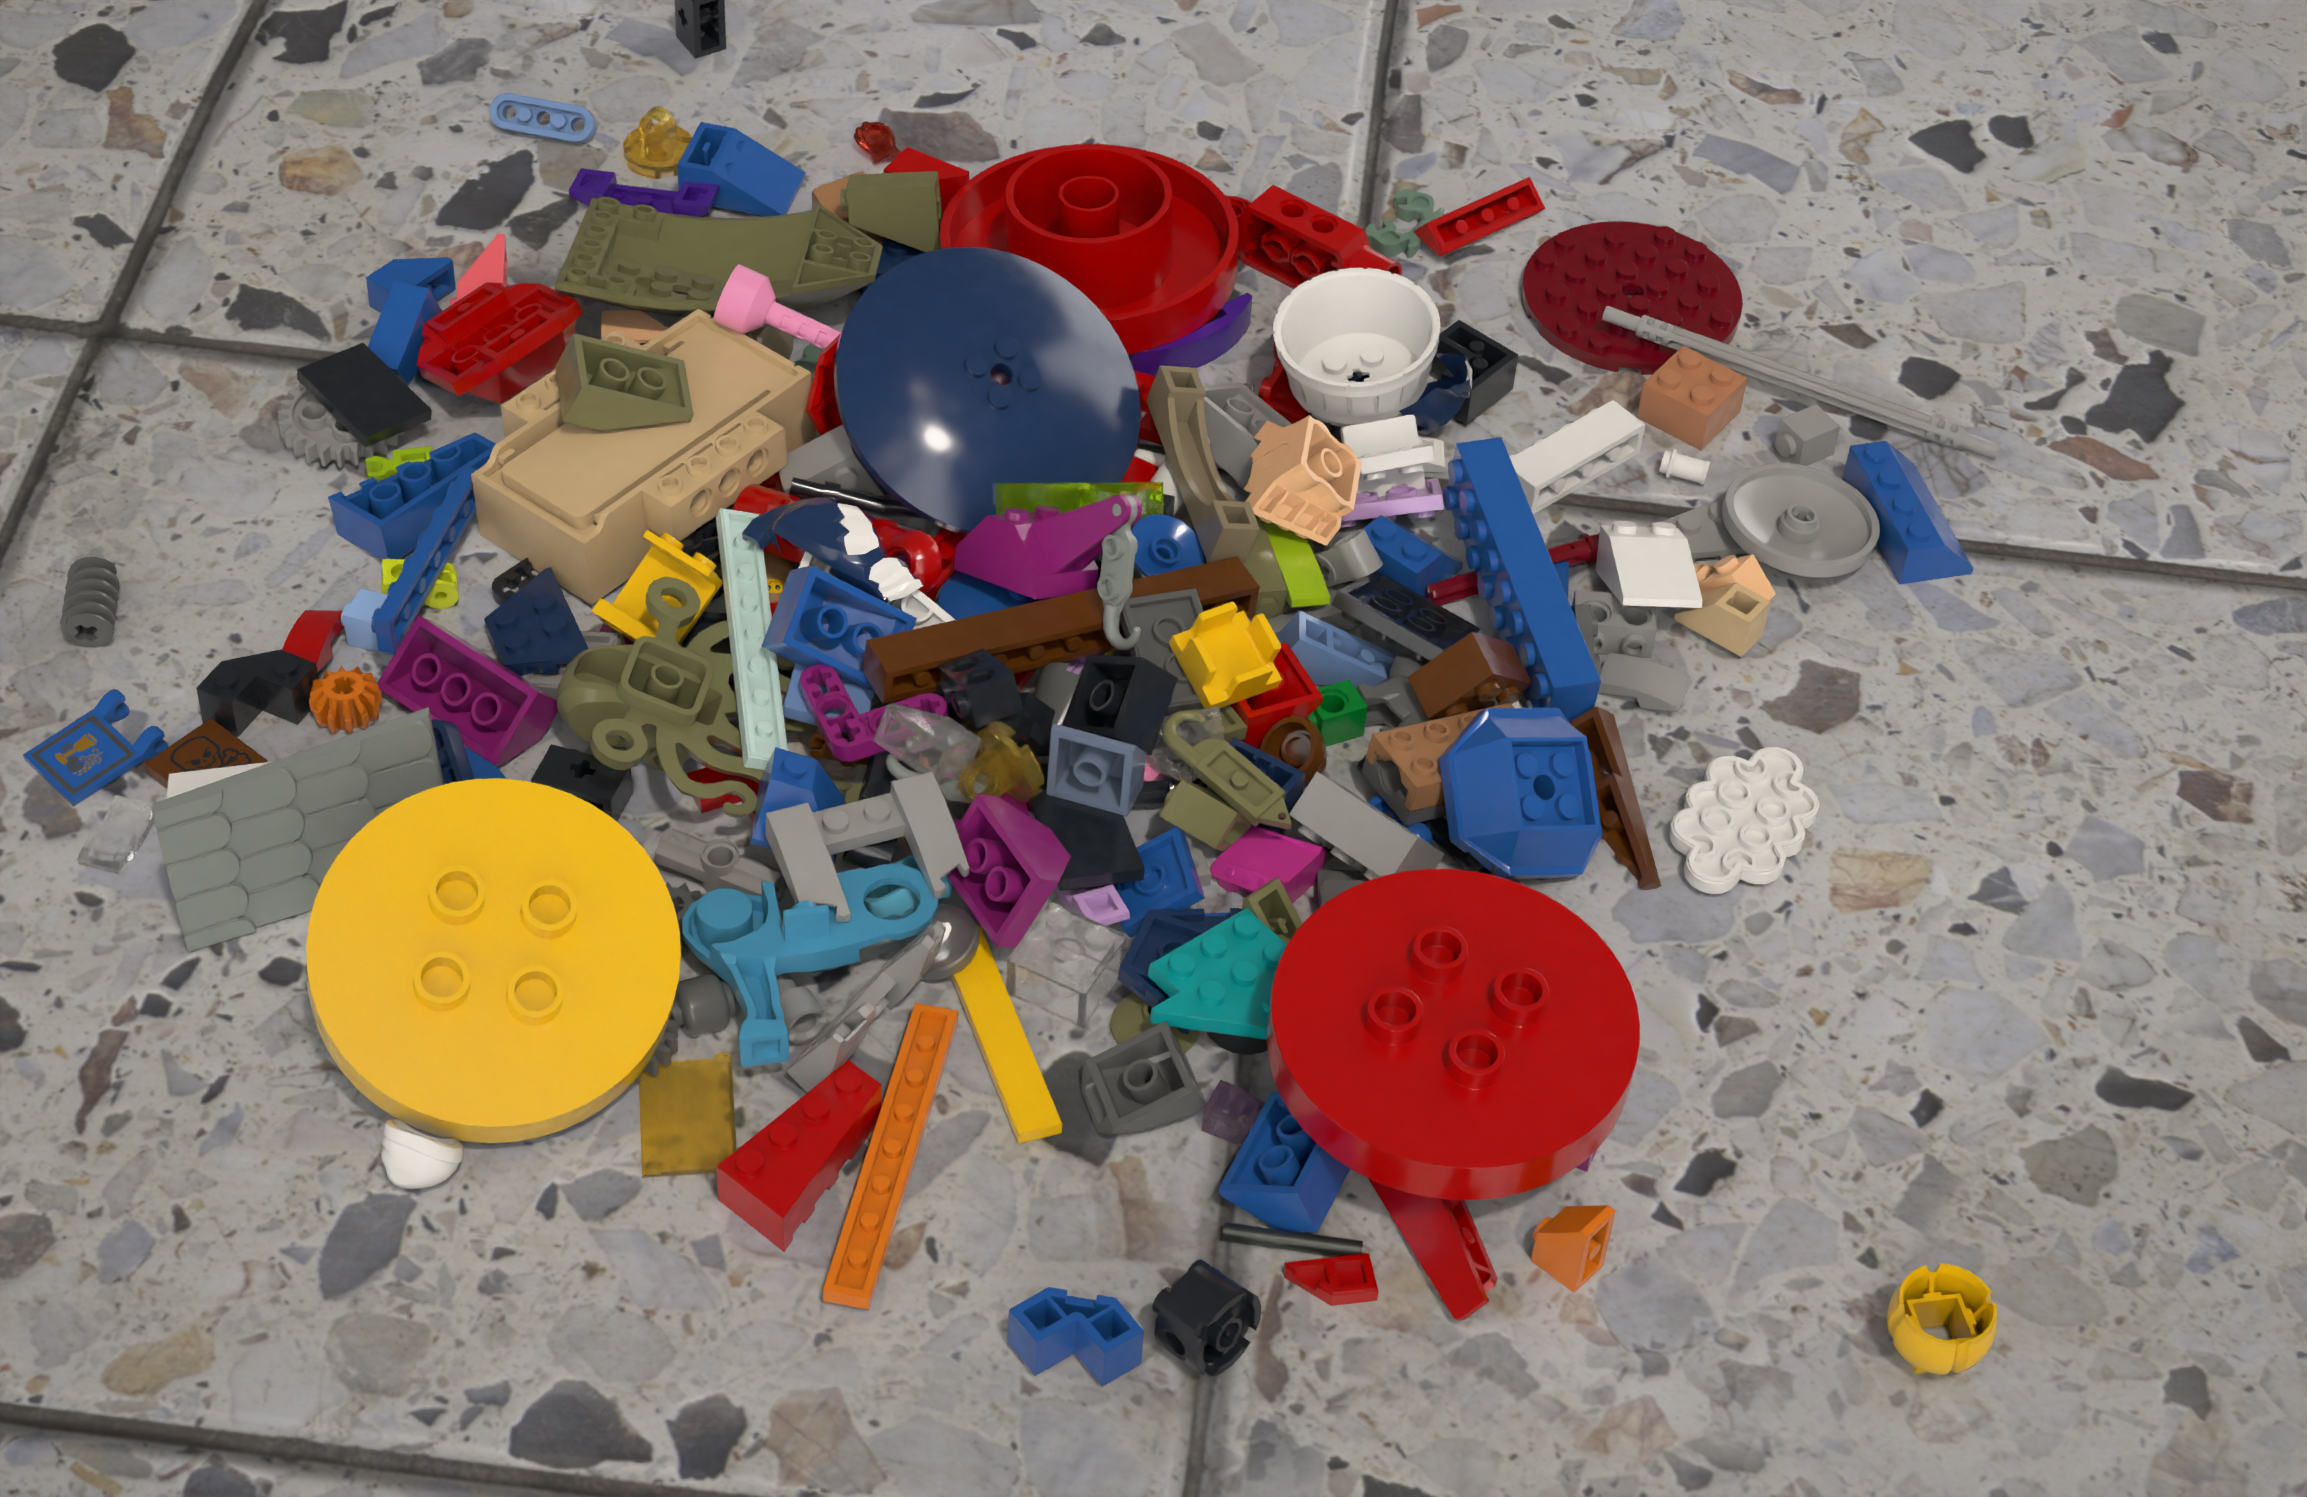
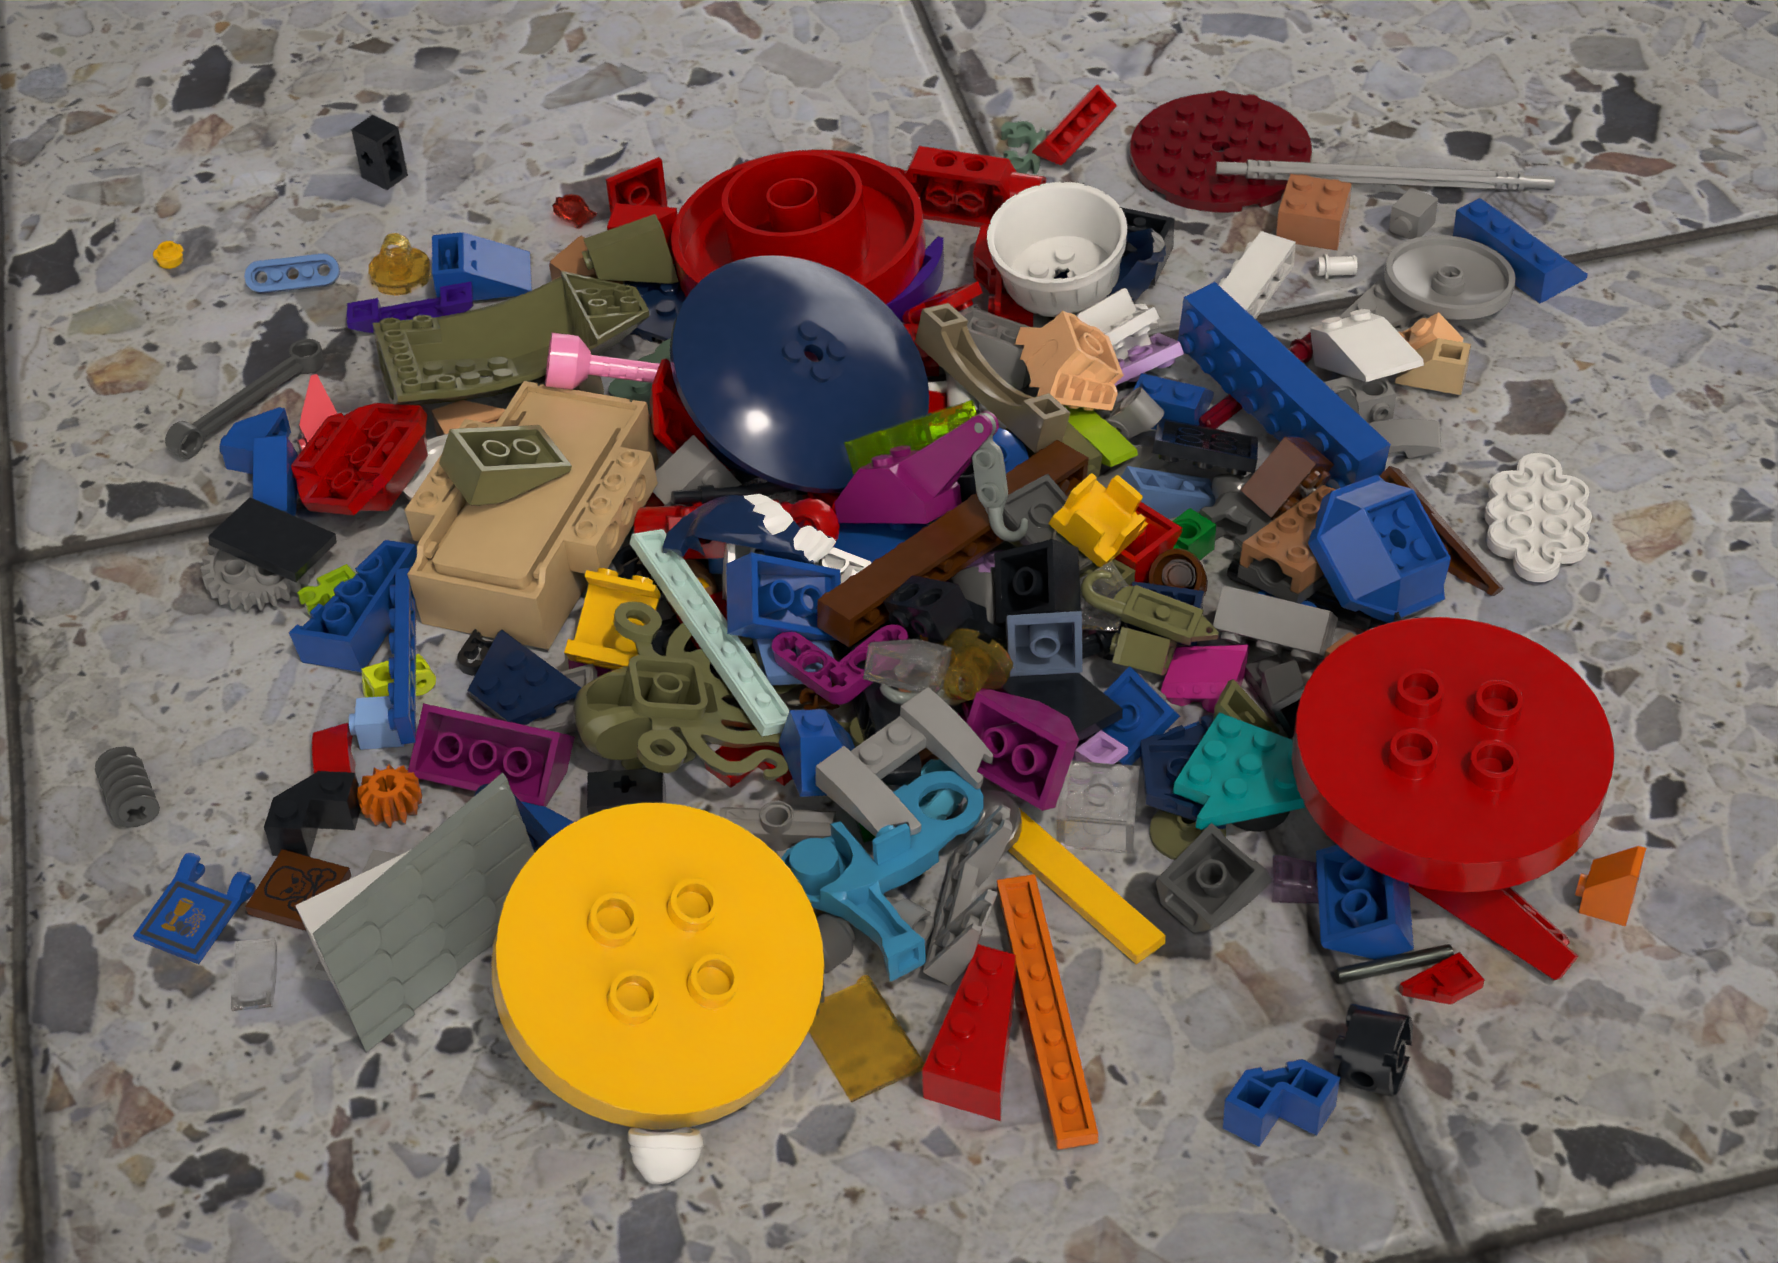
camera: 15 degrees left, 0 degrees up
(425, 236) = (243, 399): none -> dark grey piece
(429, 58) = (168, 254): none -> yellow plate
(951, 138) = (639, 186): none -> red slope
(1222, 368) = (957, 297): none -> red plate

